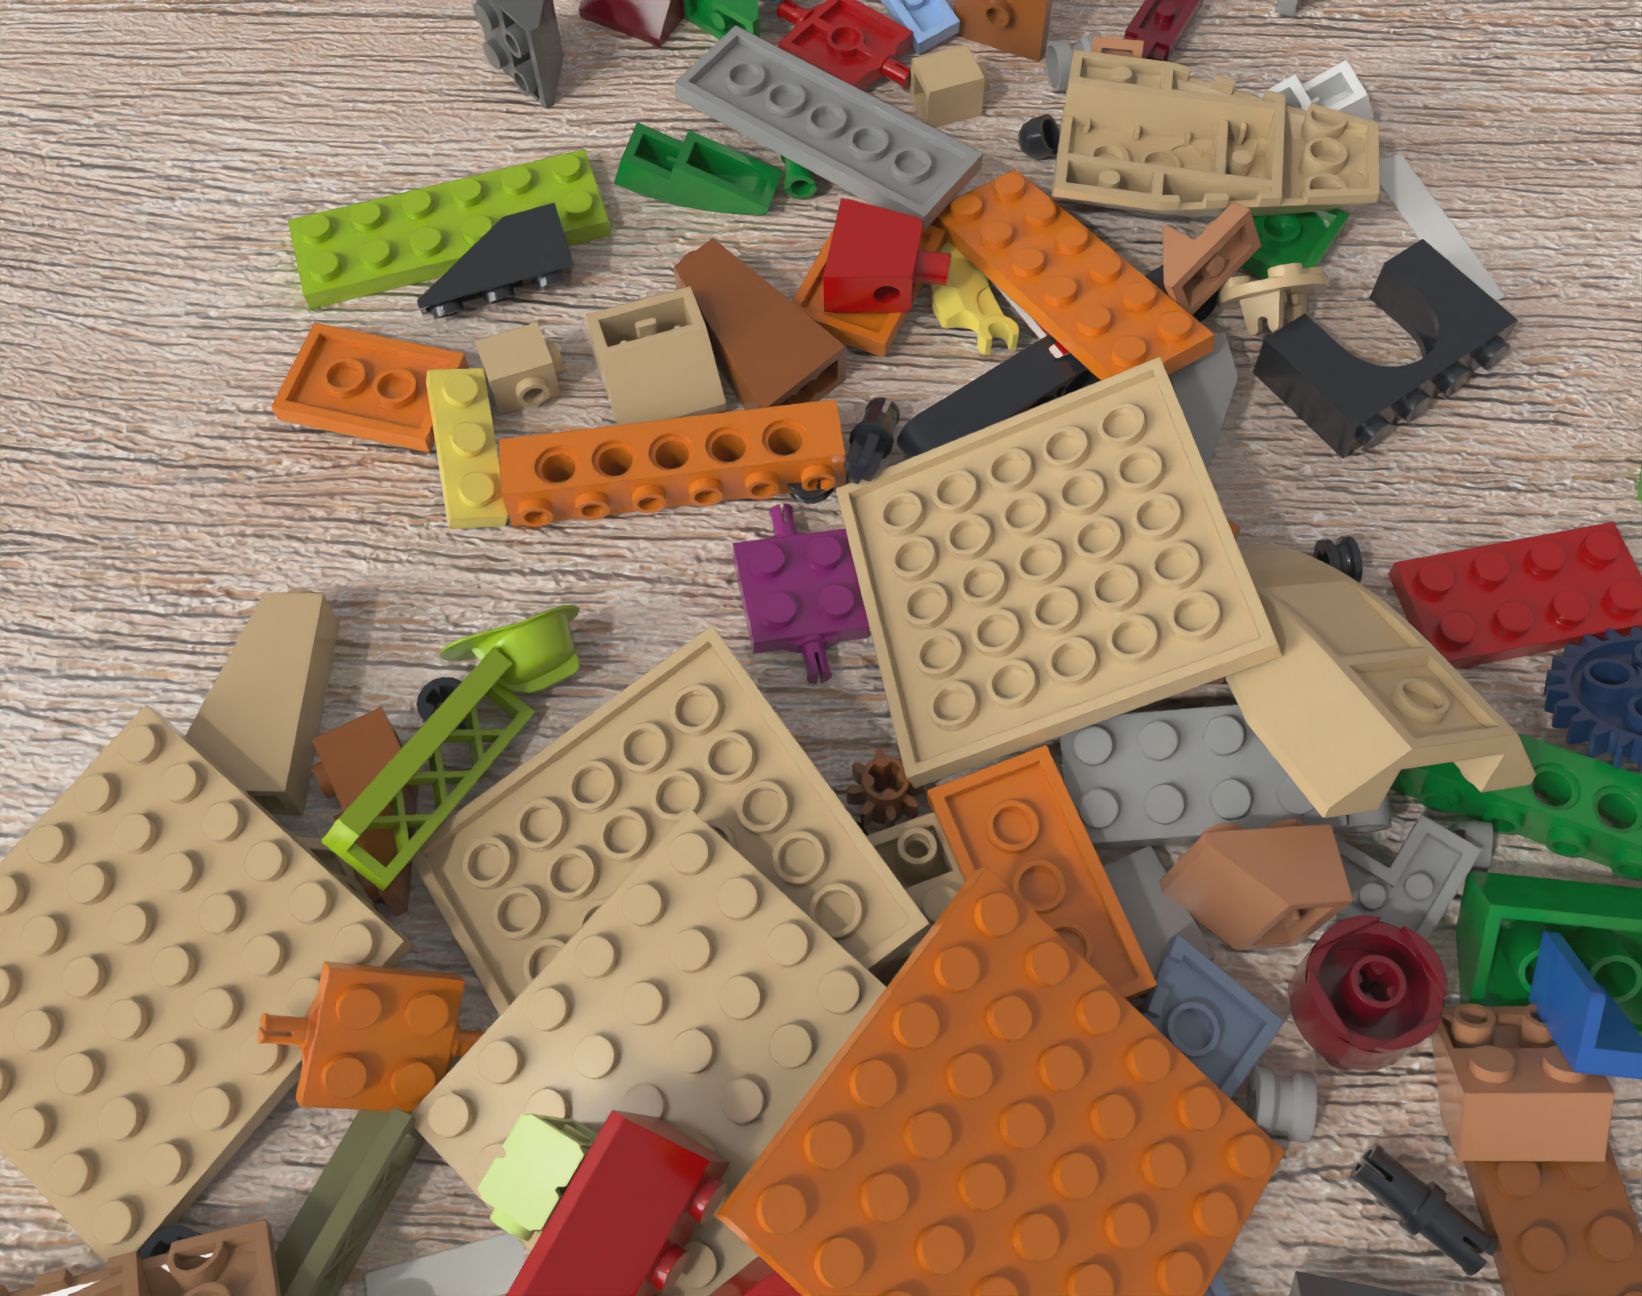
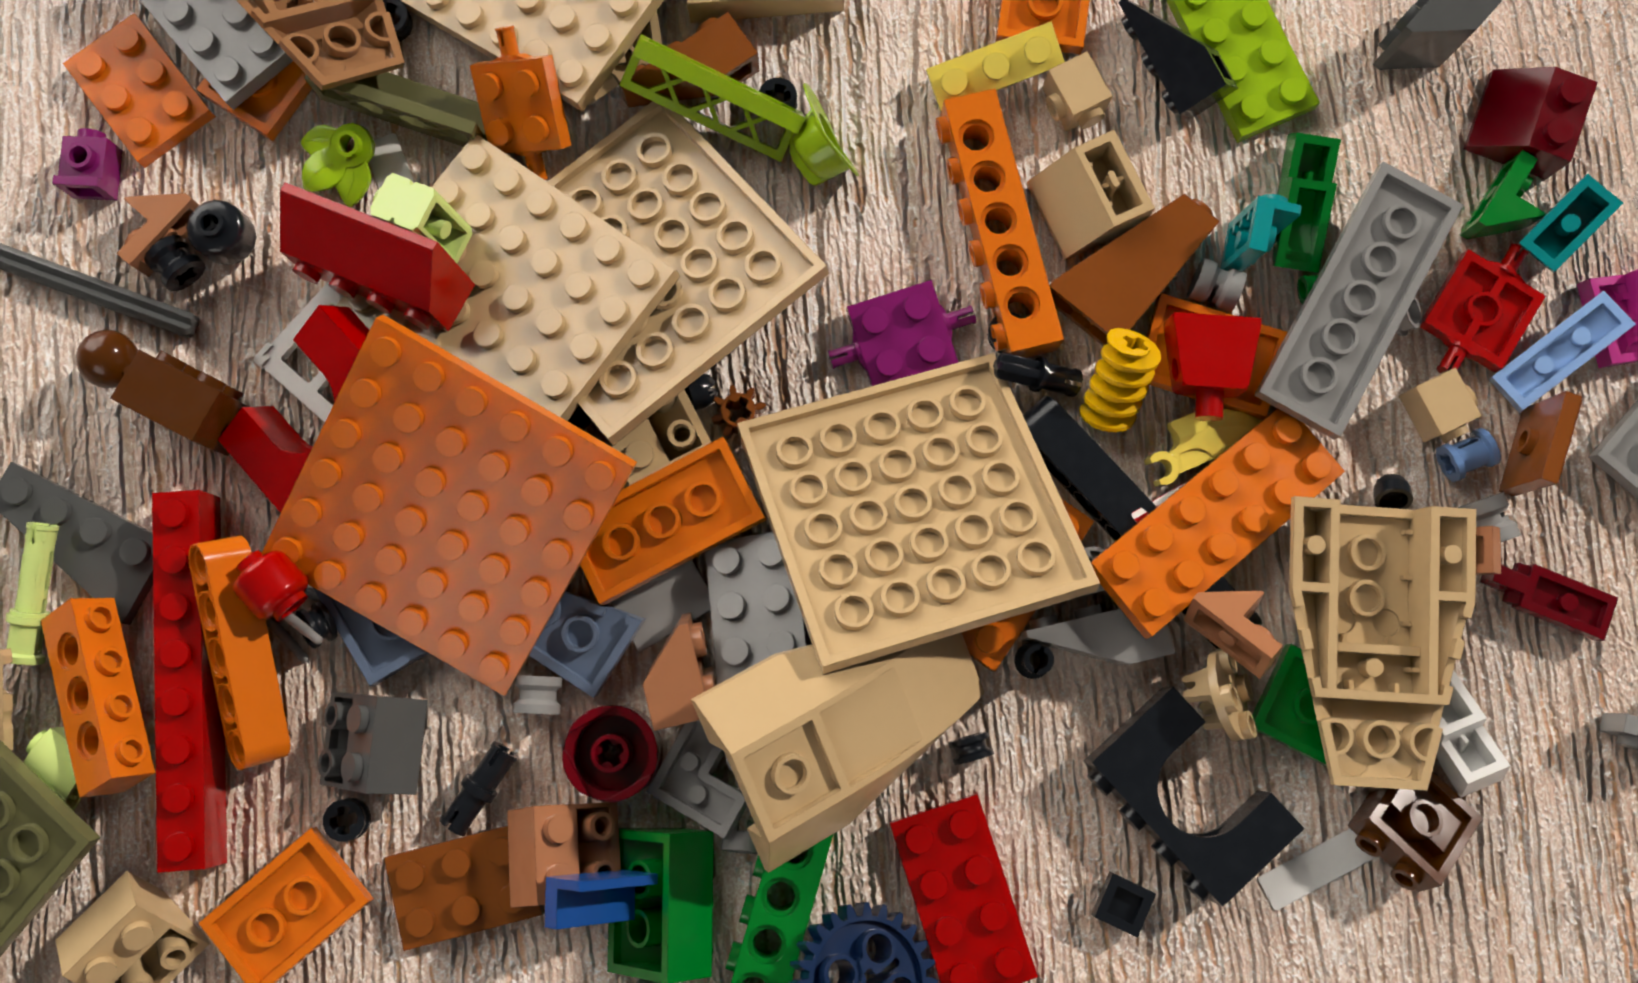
camera: 80 degrees right, 20 degrees up
(735, 207) = (1255, 230): none -> teal bracket
(788, 256) = (1216, 286): none -> light grey wheel
(896, 351) = (1120, 381): none -> yellow piece
(1003, 72) = (1468, 454): none -> medium blue bush
(1231, 477) = (1023, 664): none -> black pin
(1422, 156) = (1415, 831): none -> reddish brown plate
(1516, 427) = (1123, 904): none -> black plate

